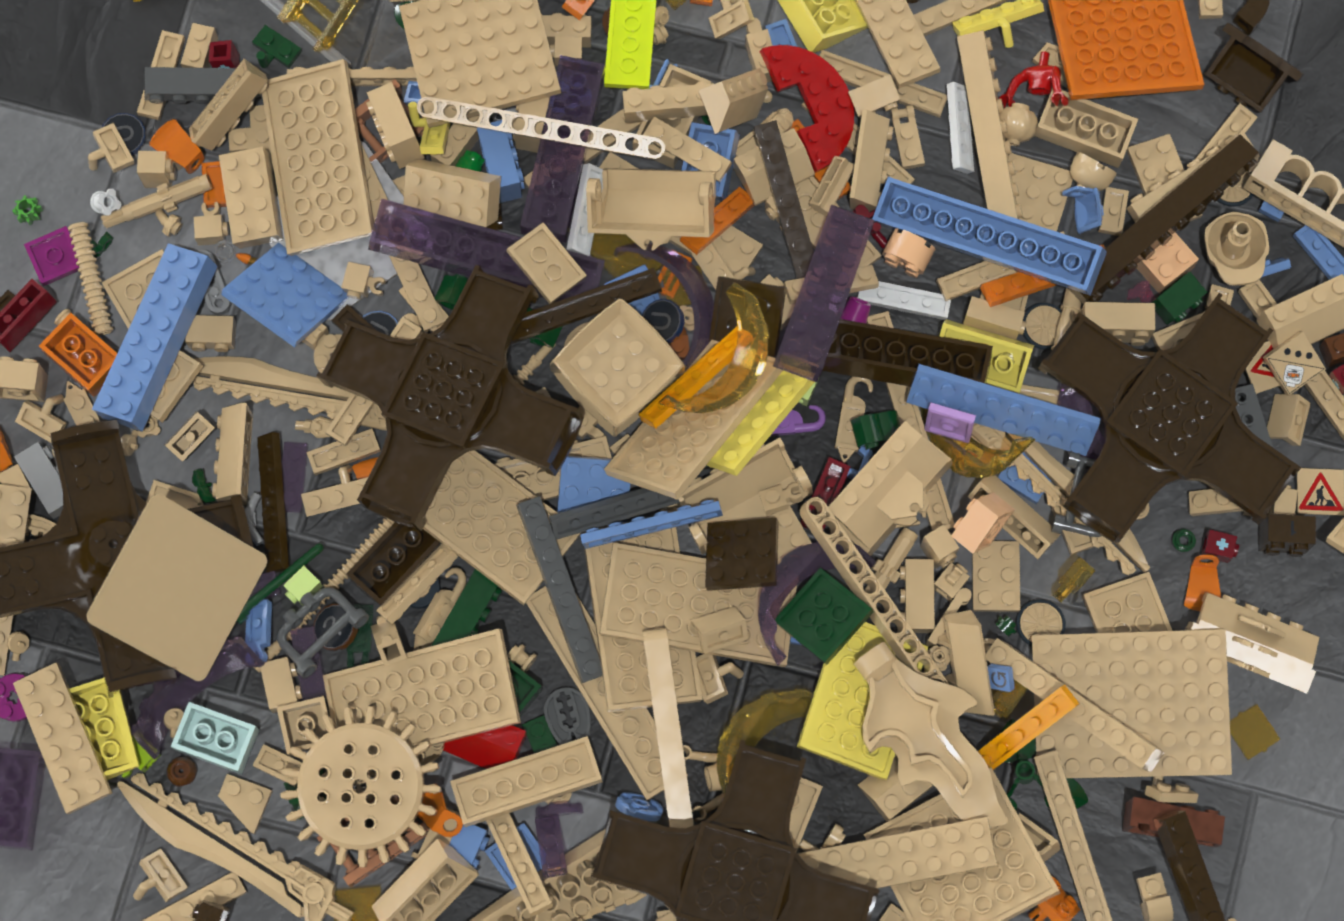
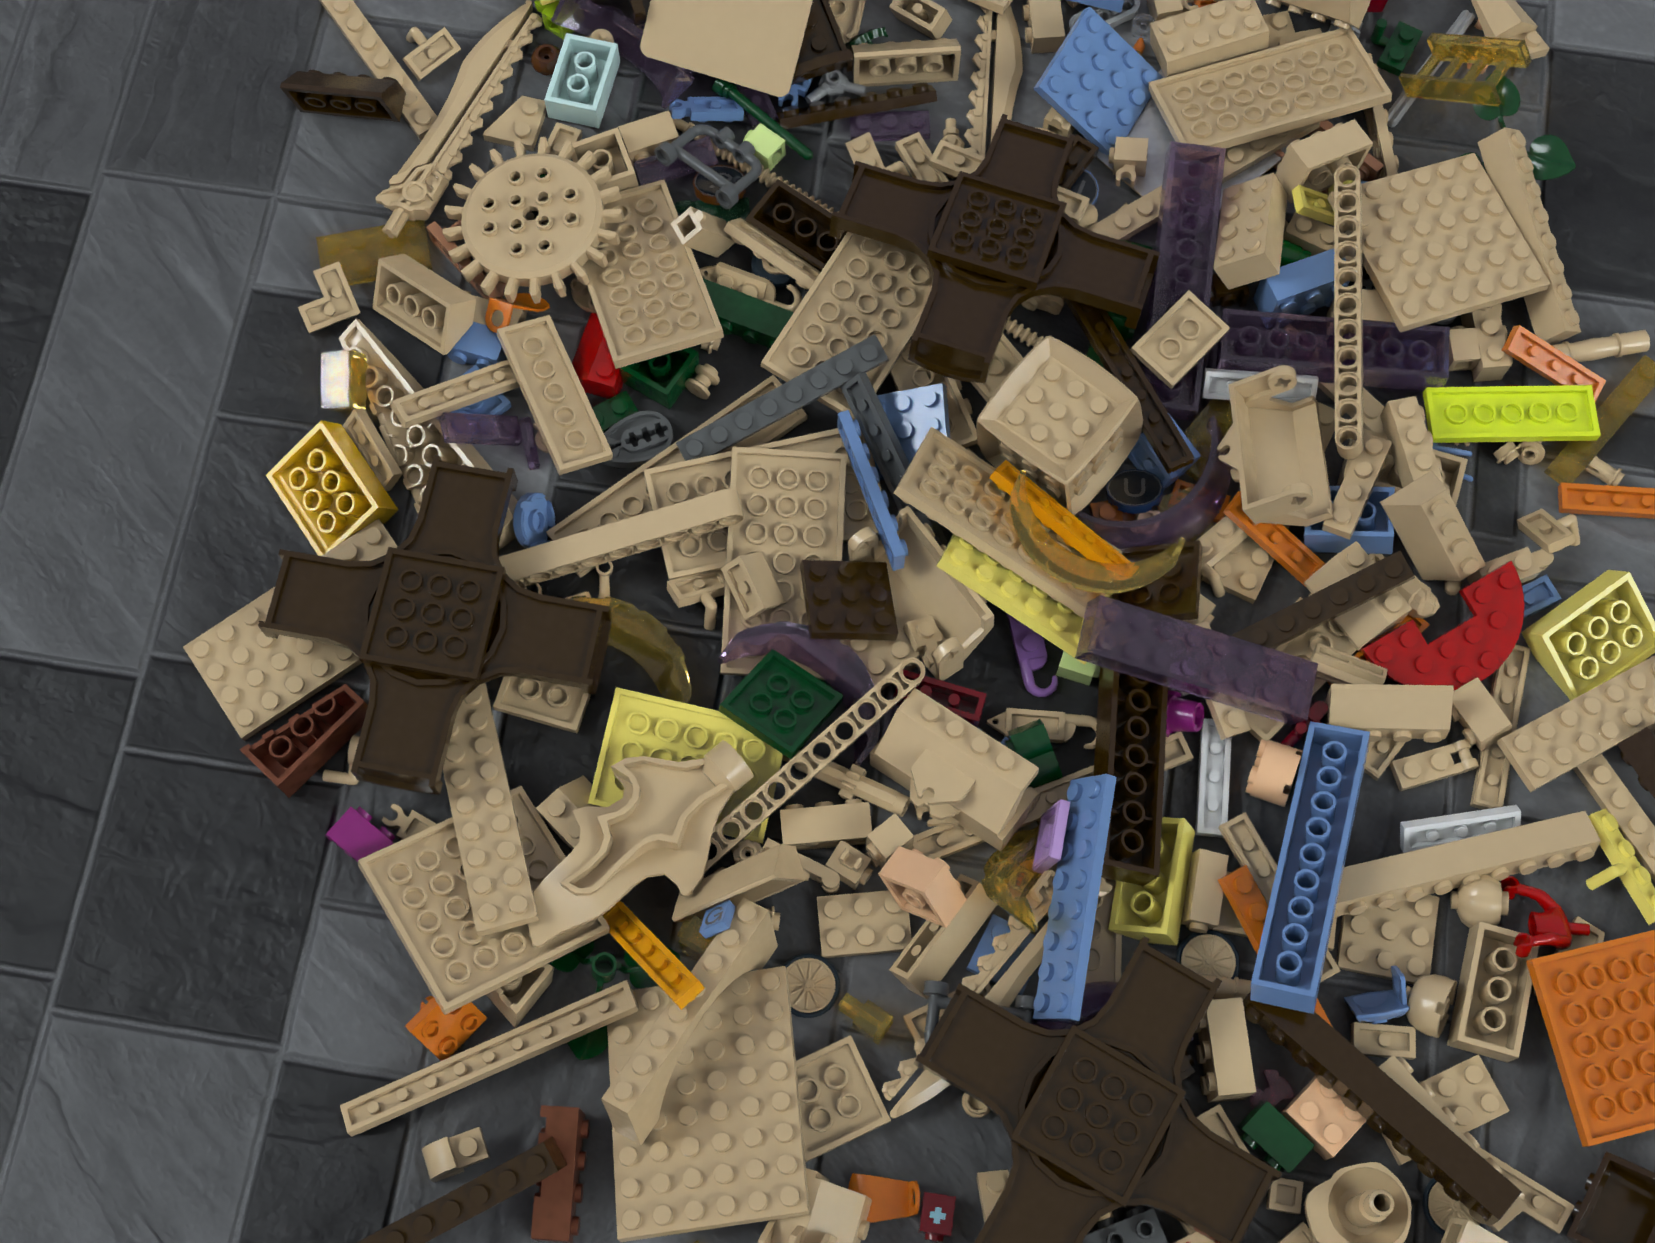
camera: 85 degrees right, 5 degrees down
(835, 838) = (513, 749): tan plate -> none
(1006, 625) = (799, 939): dark green plate -> none
(1166, 793) = (593, 1166): tan plate -> none
(1184, 533) = (950, 1167): dark green plate -> none

